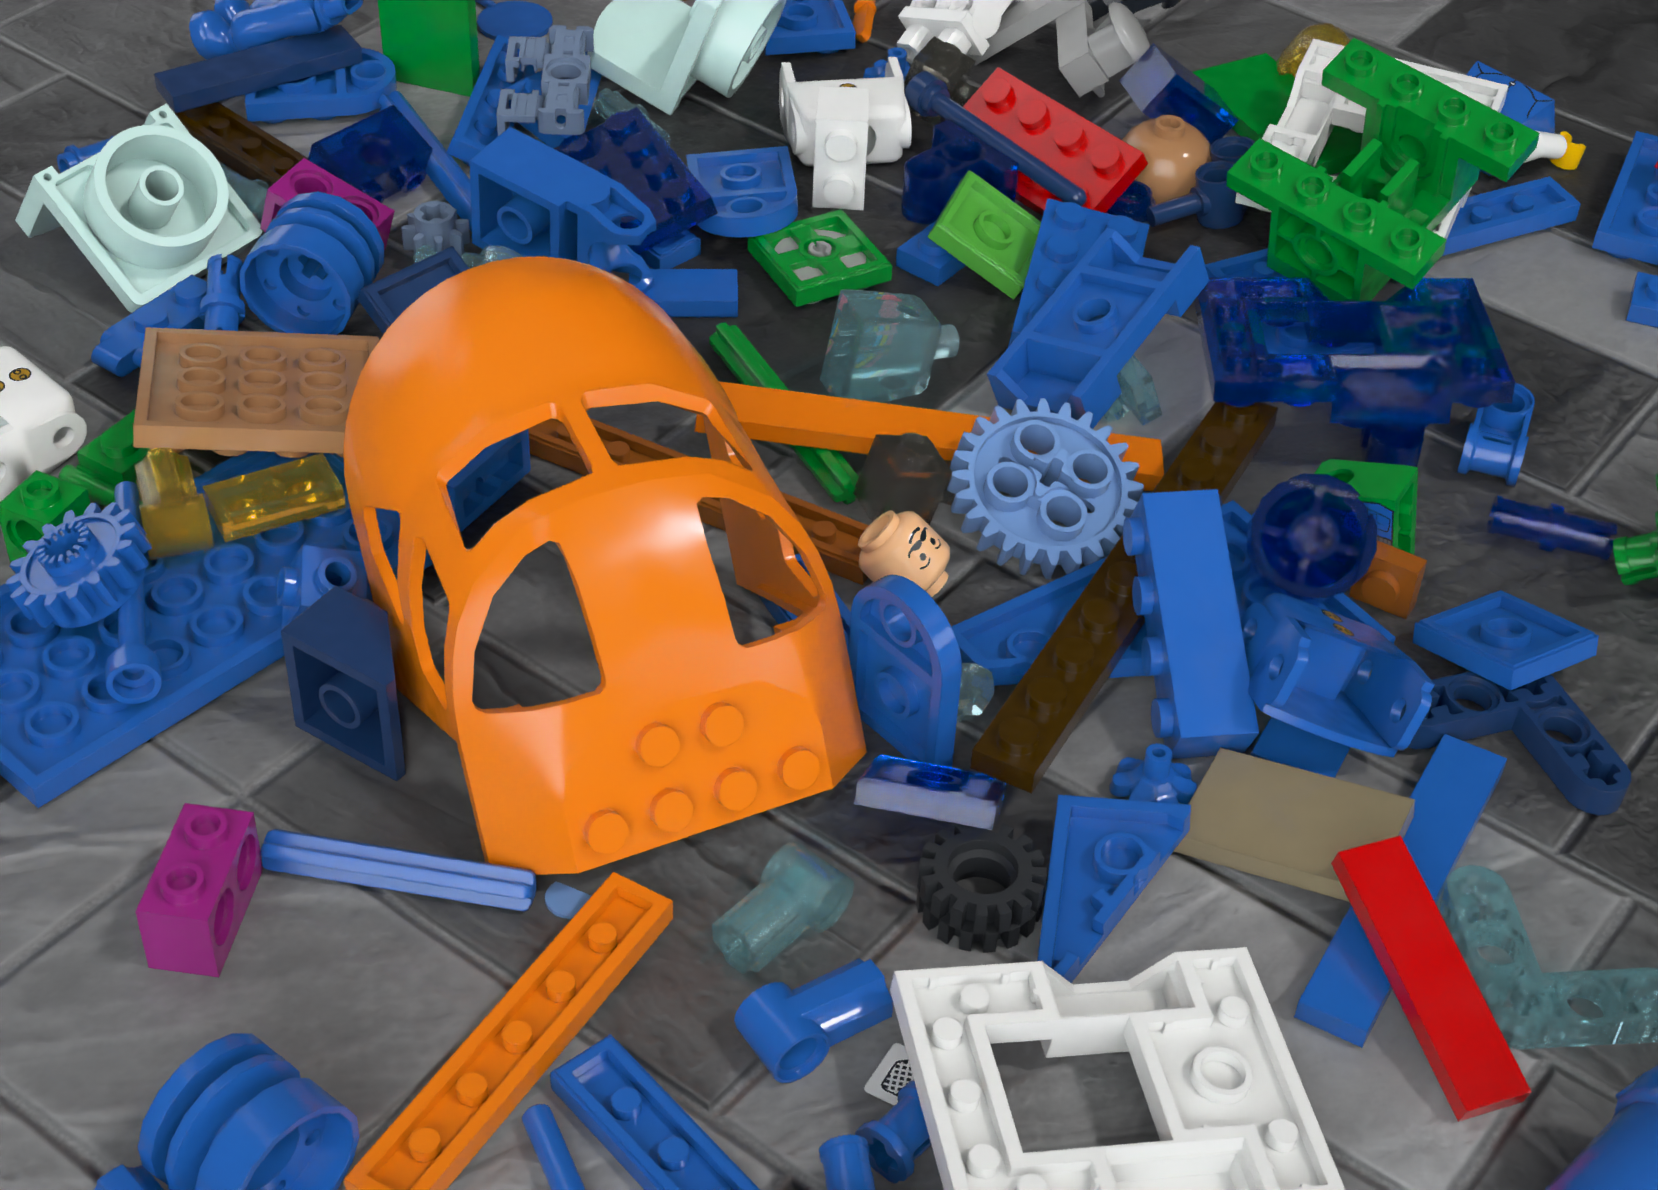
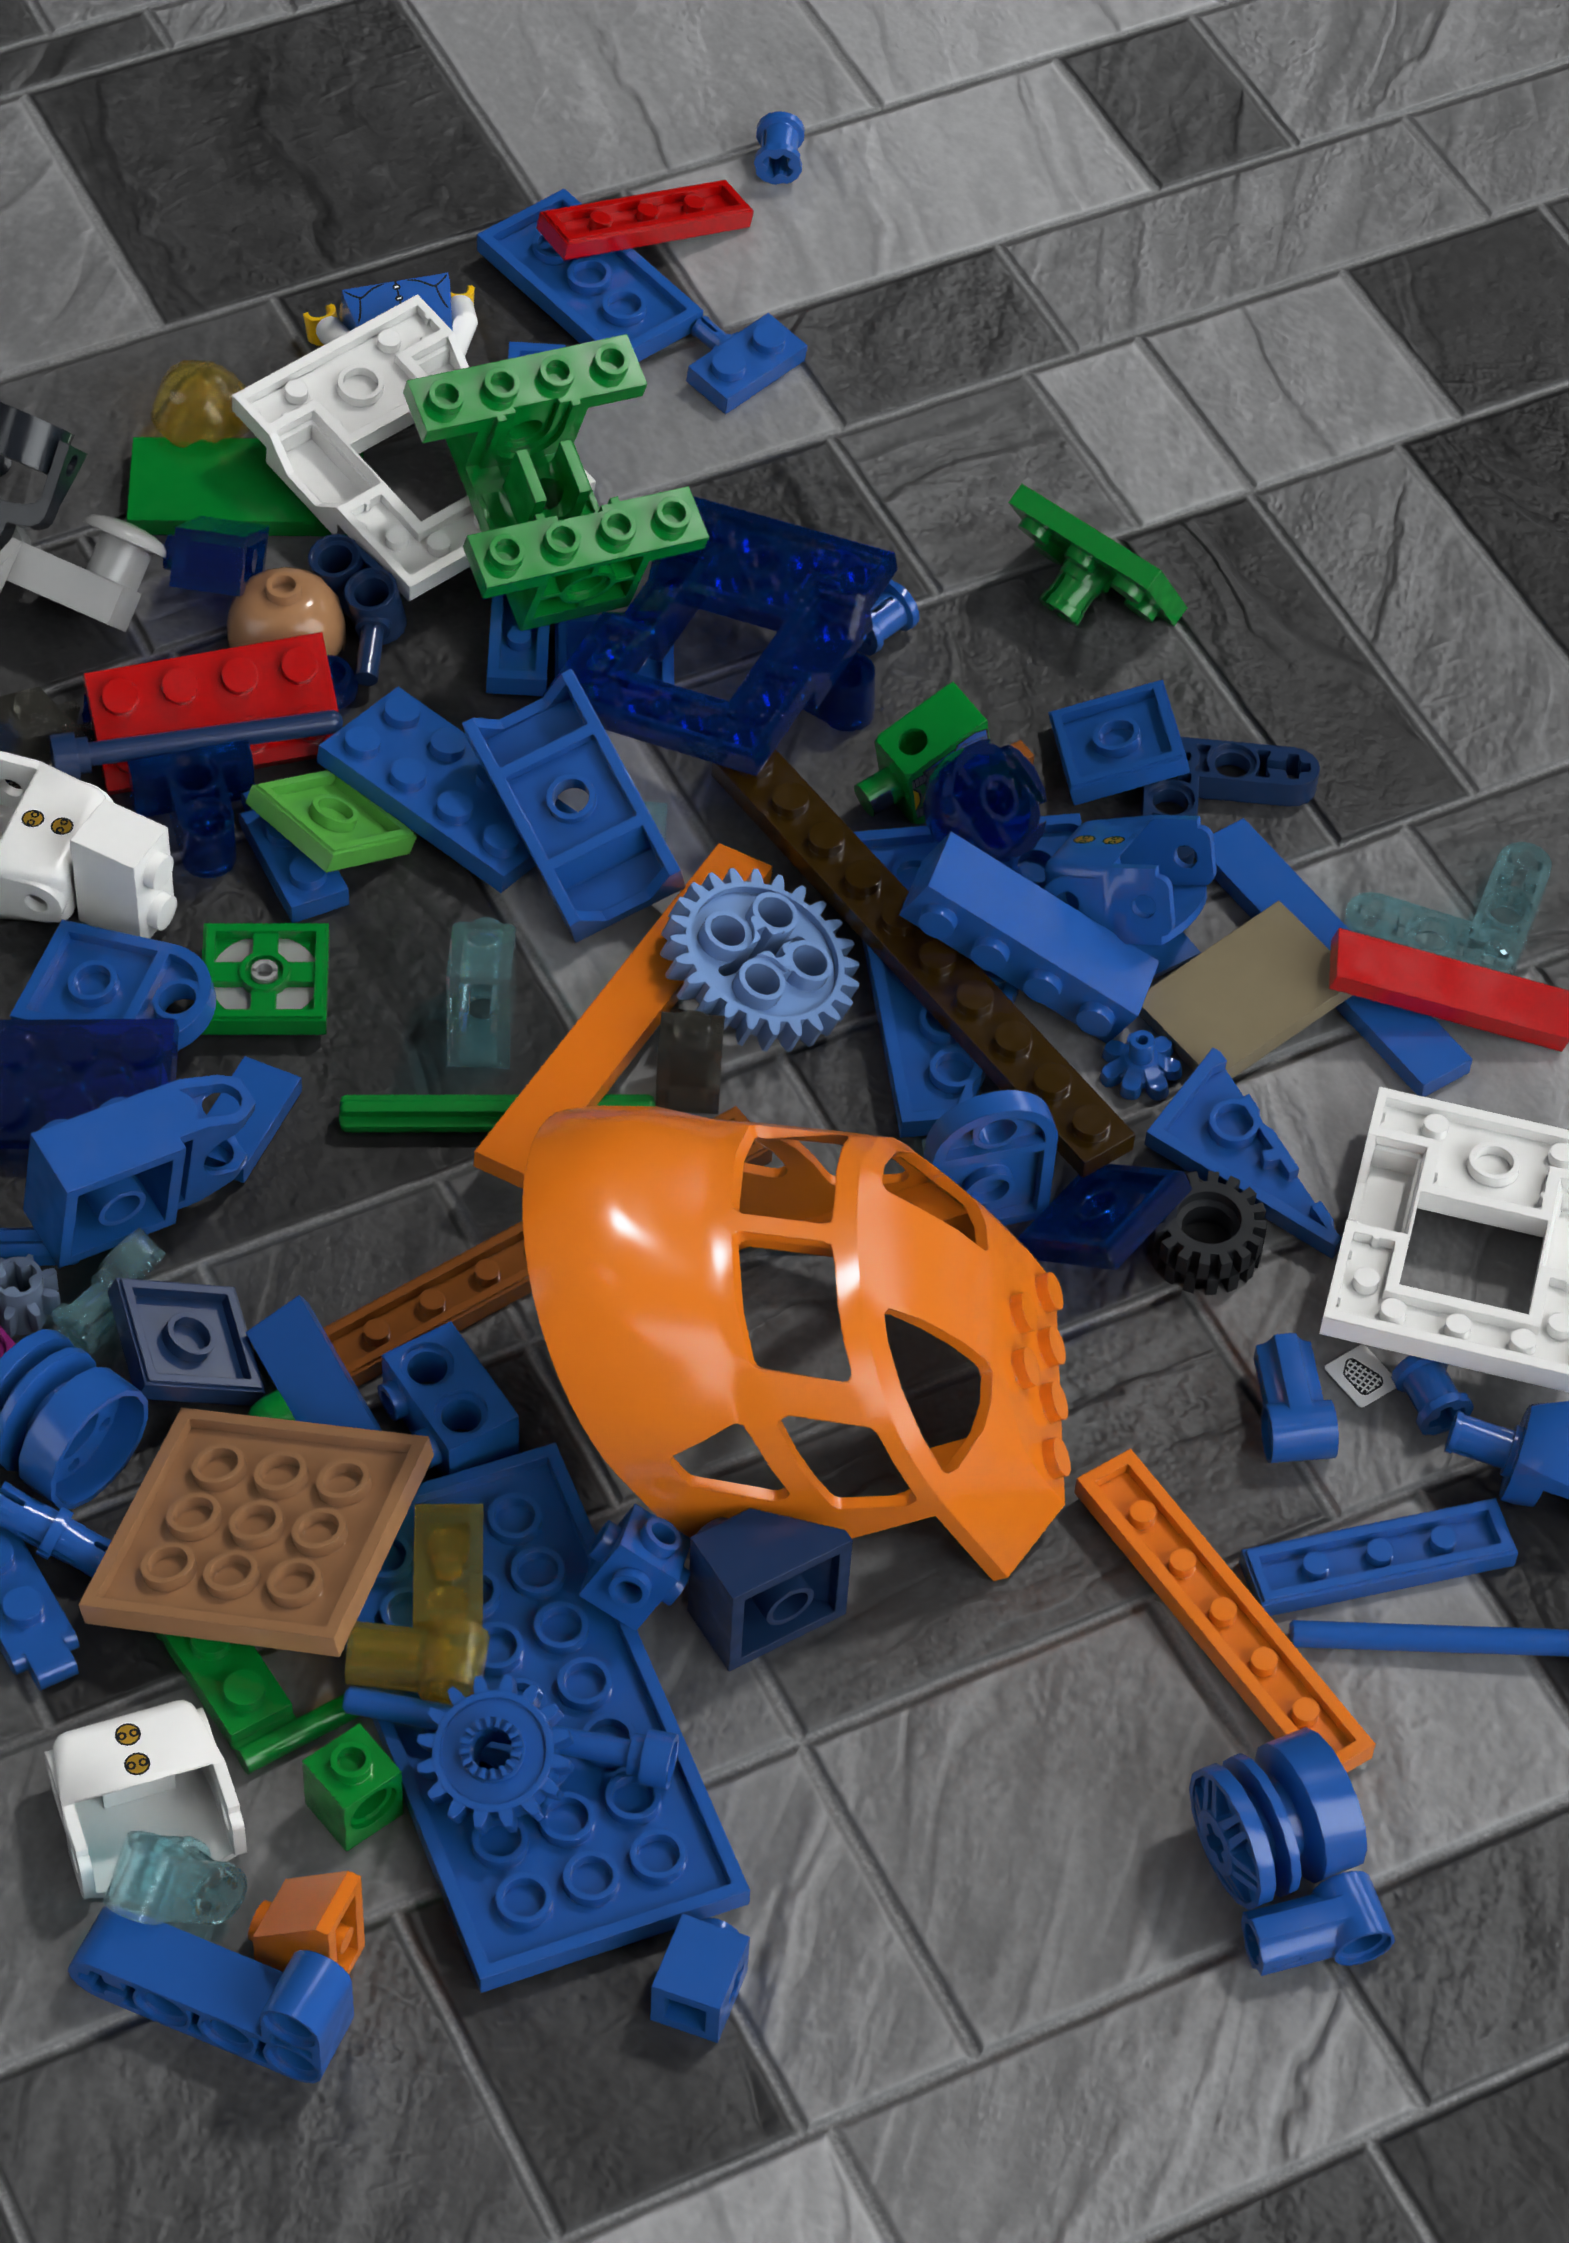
camera: 65 degrees left, 10 degrees up
(200, 890) = (947, 1789): magenta brick -> none
(399, 870) = (974, 1643): axle -> none
(564, 900) = (1061, 1534): medium blue piece -> none
(792, 895) = (1160, 1363): clear light blue piece -> none
(904, 547) = (796, 1098): light nougat head -> none
(1551, 527) = (992, 633): clear blue pin -> none

